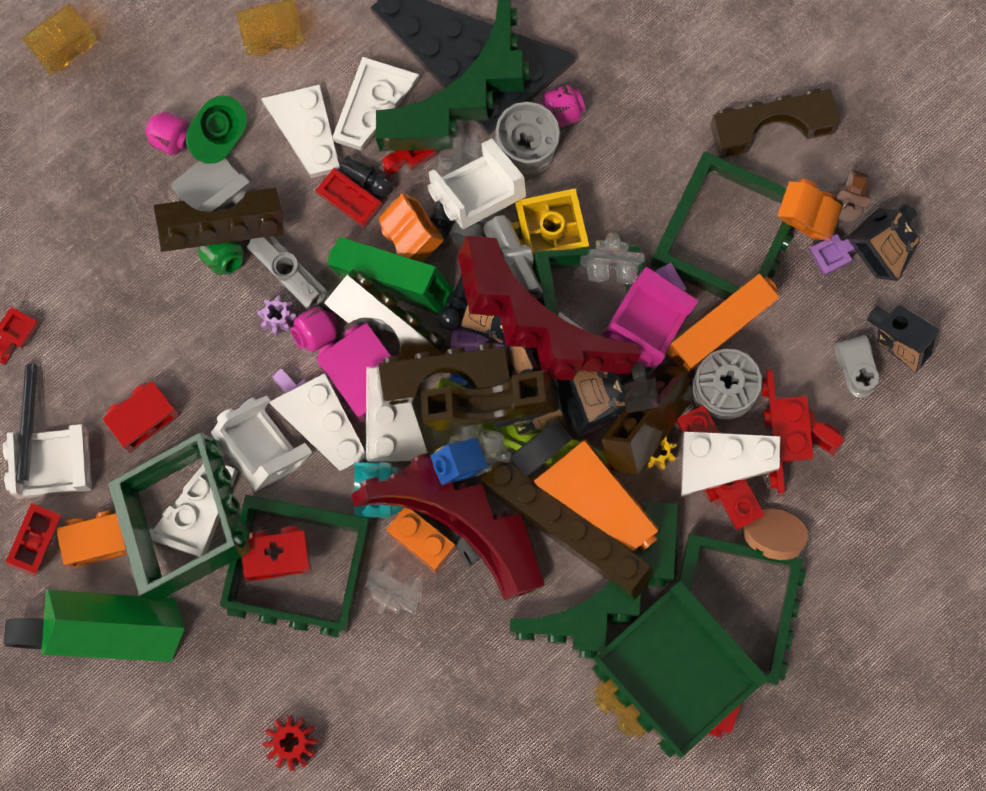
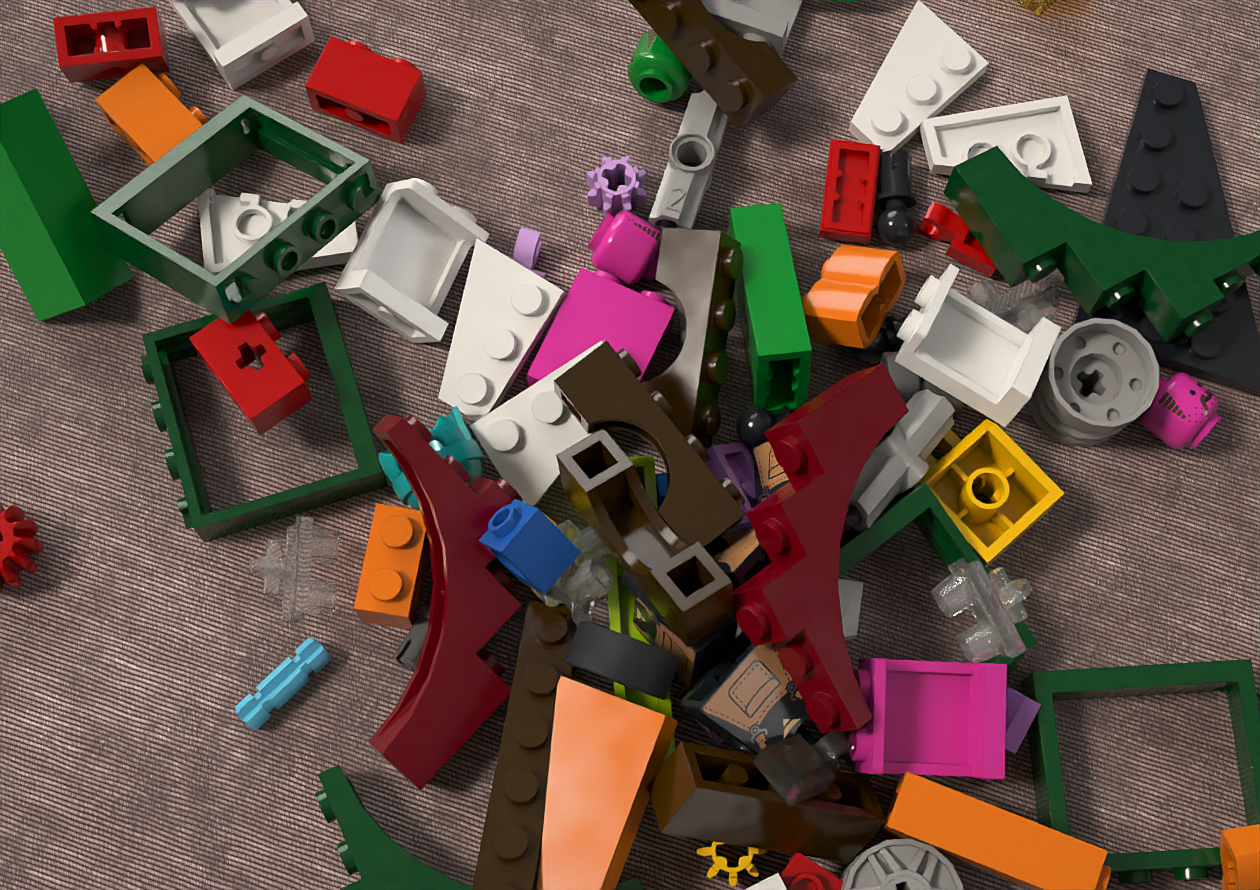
camera: 55 degrees right, 5 degrees down
(448, 629) = (282, 683): none -> medium azure axle

